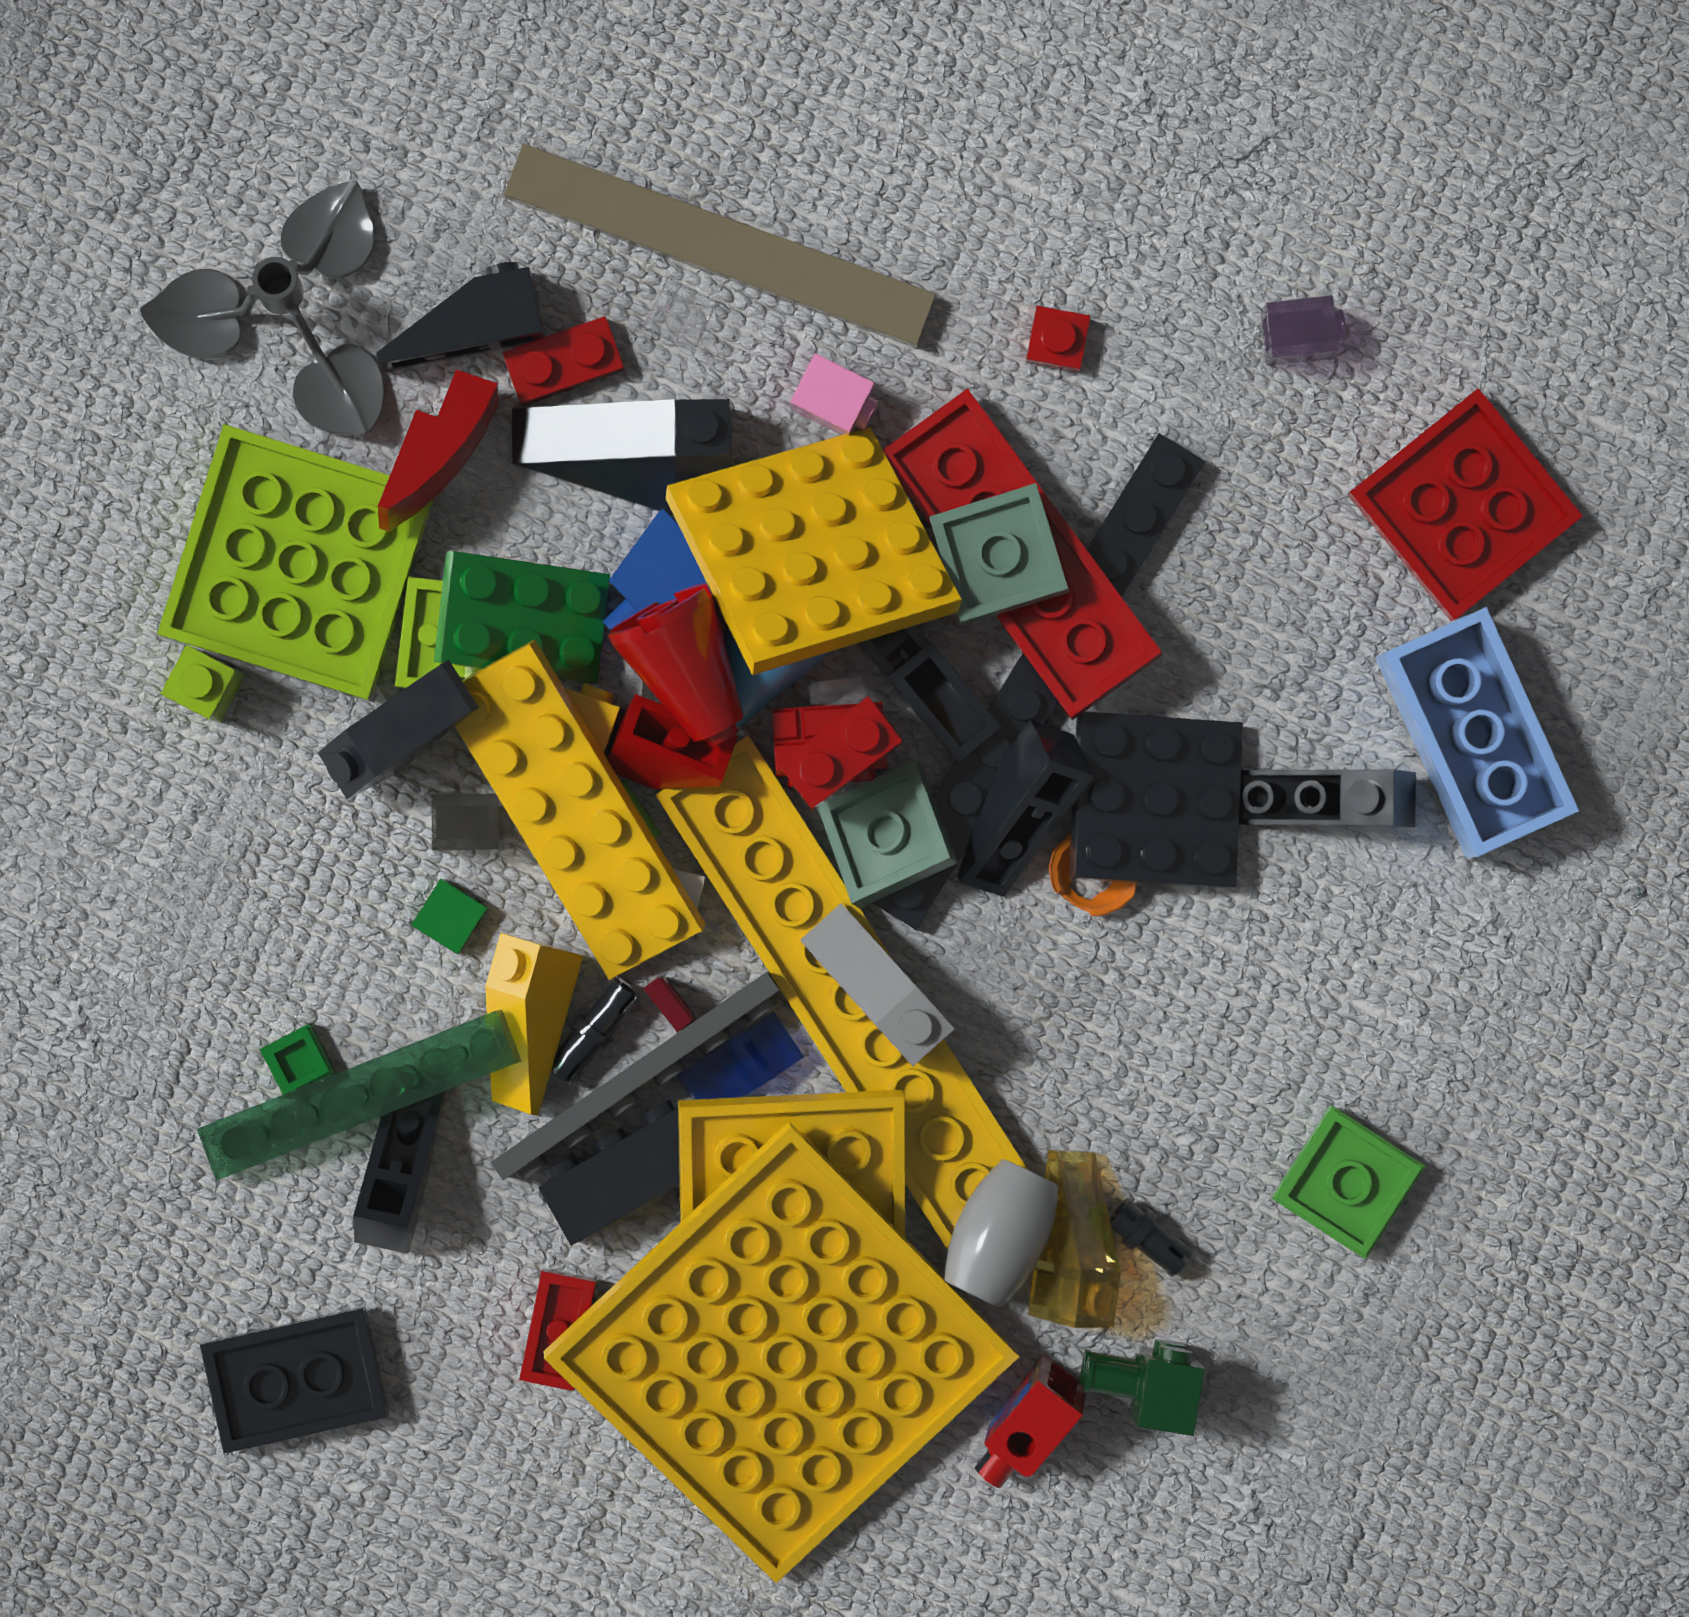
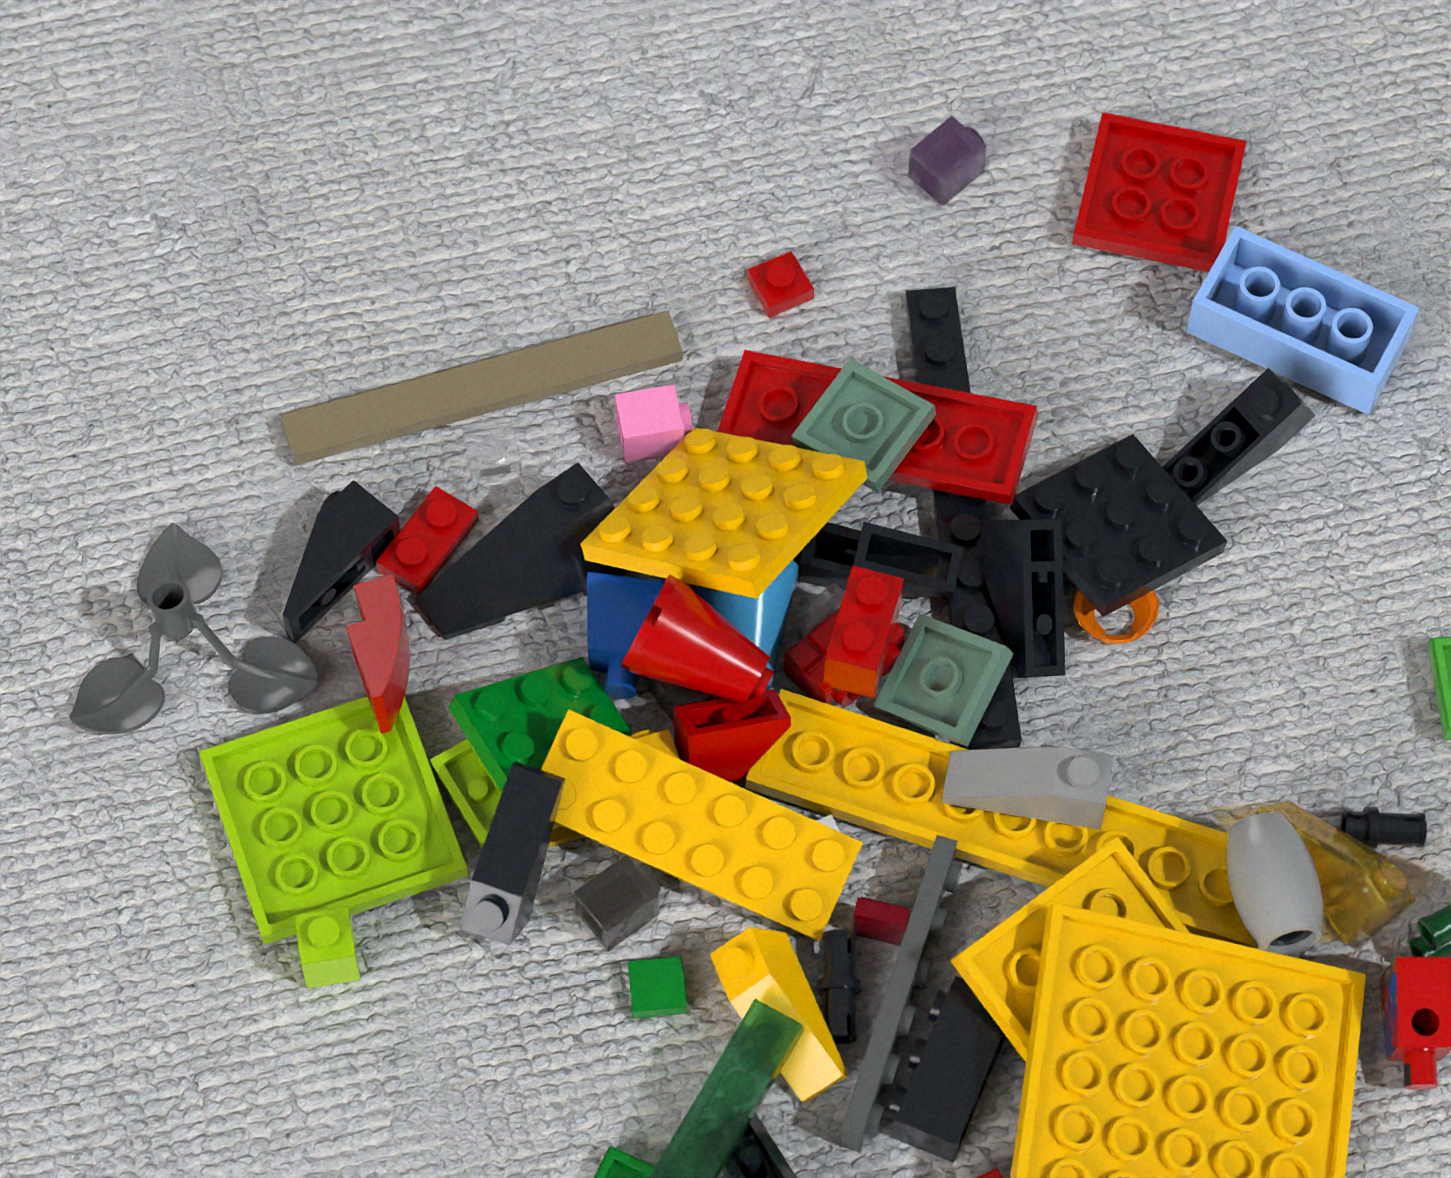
camera: 40 degrees left, 25 degrees down
(742, 1062) = (975, 912): clear blue slope -> none

